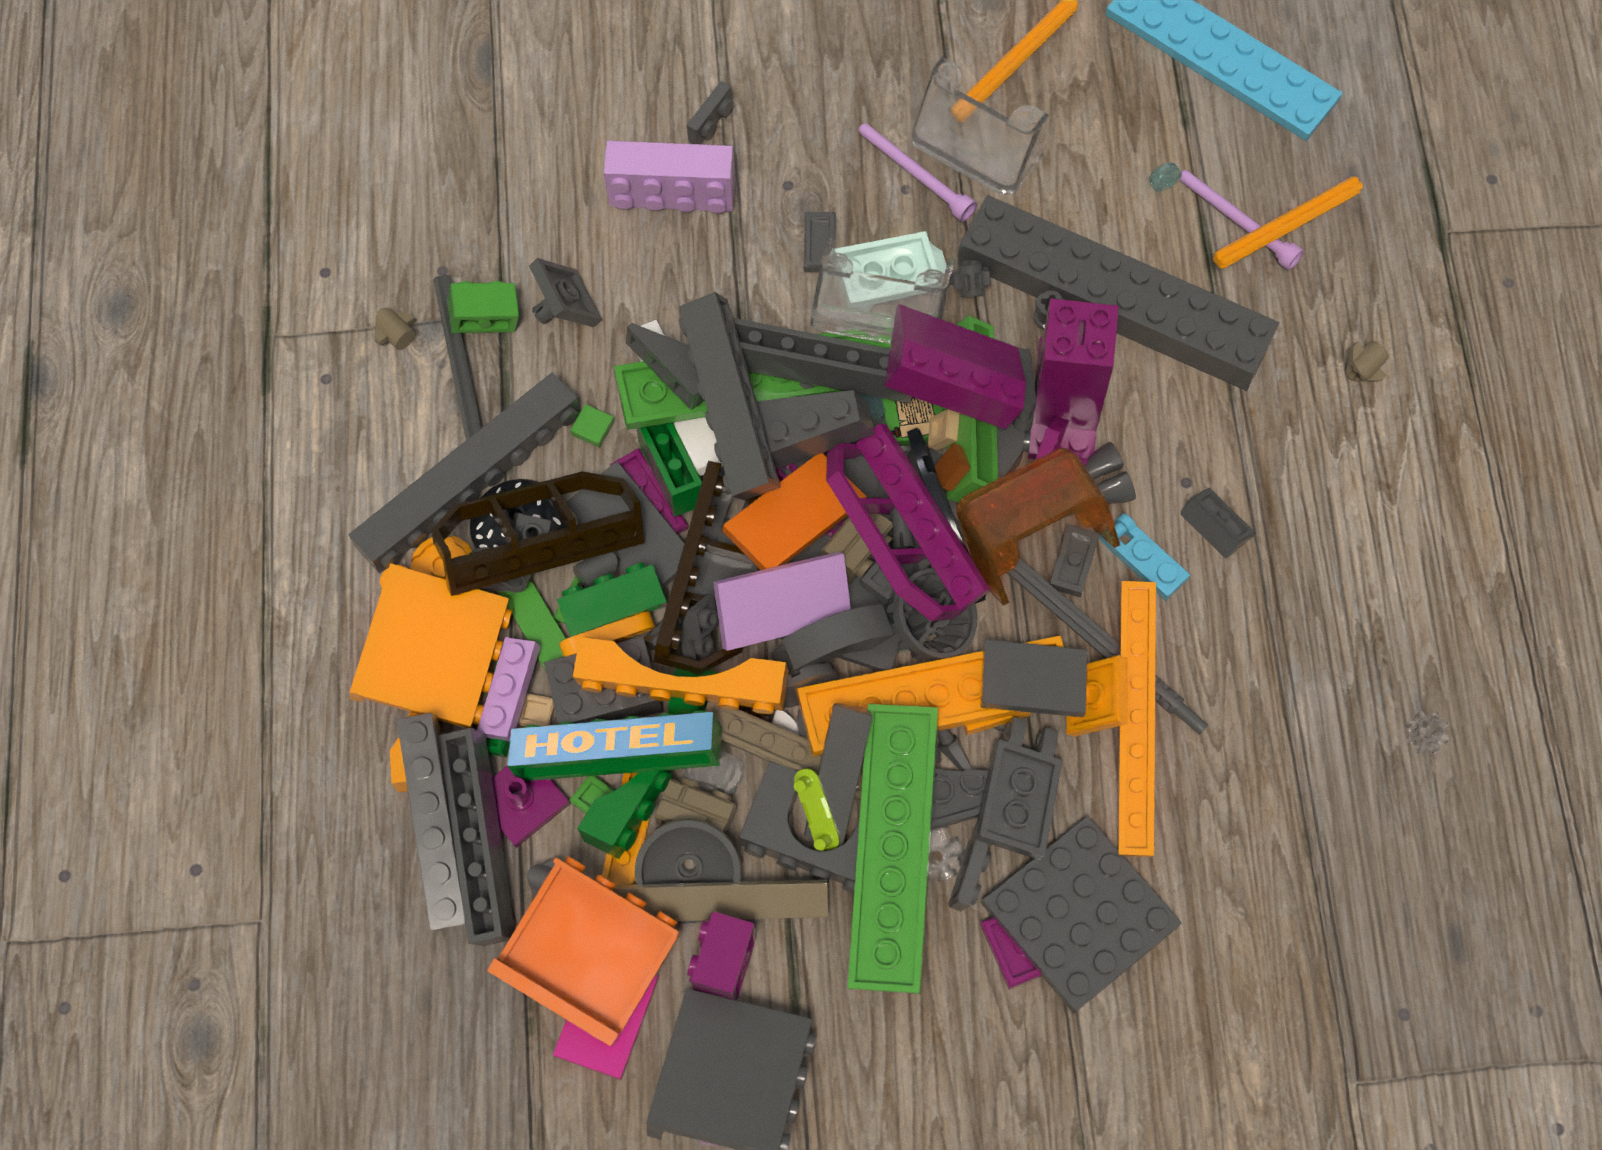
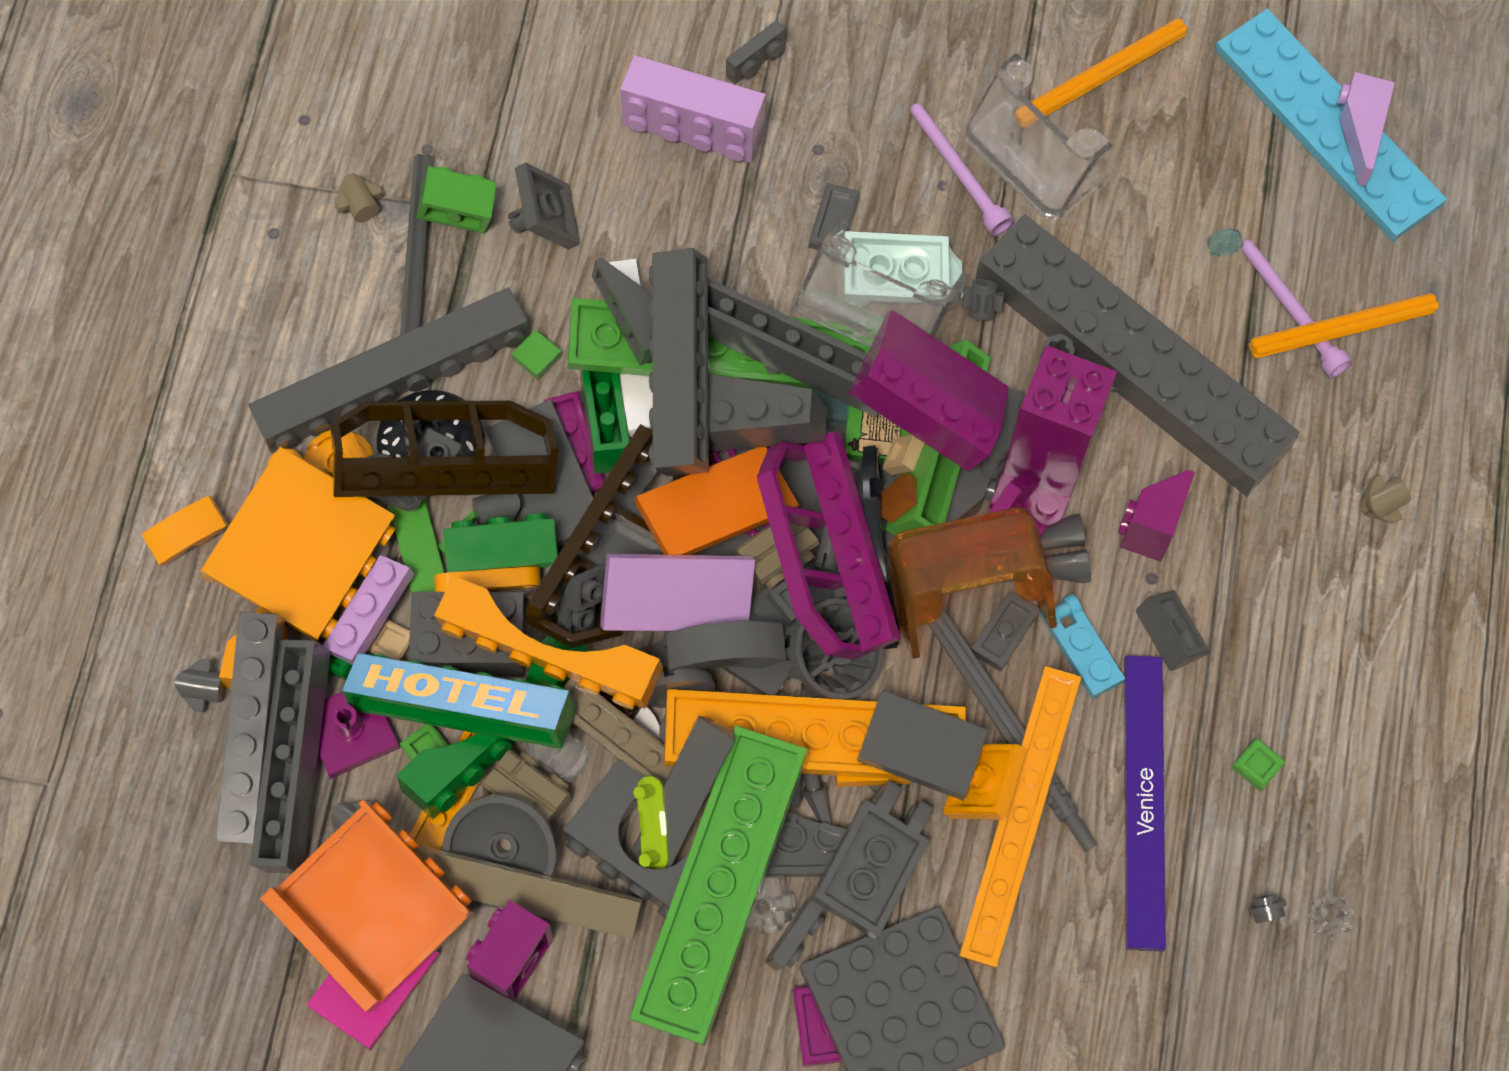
camera: 10 degrees right, 0 degrees up
(321, 661) = (185, 529): none -> light orange slope
(375, 795) = (200, 685): none -> dark grey piece
(1177, 428) = (1154, 516): none -> magenta slope
(1238, 680) = (1144, 804): none -> dark purple tile
(1253, 42) = (1363, 119): none -> lavender slope
(1326, 619) = (1258, 764): none -> bright green tile
(1372, 741) = (1267, 908): none -> dark grey plate

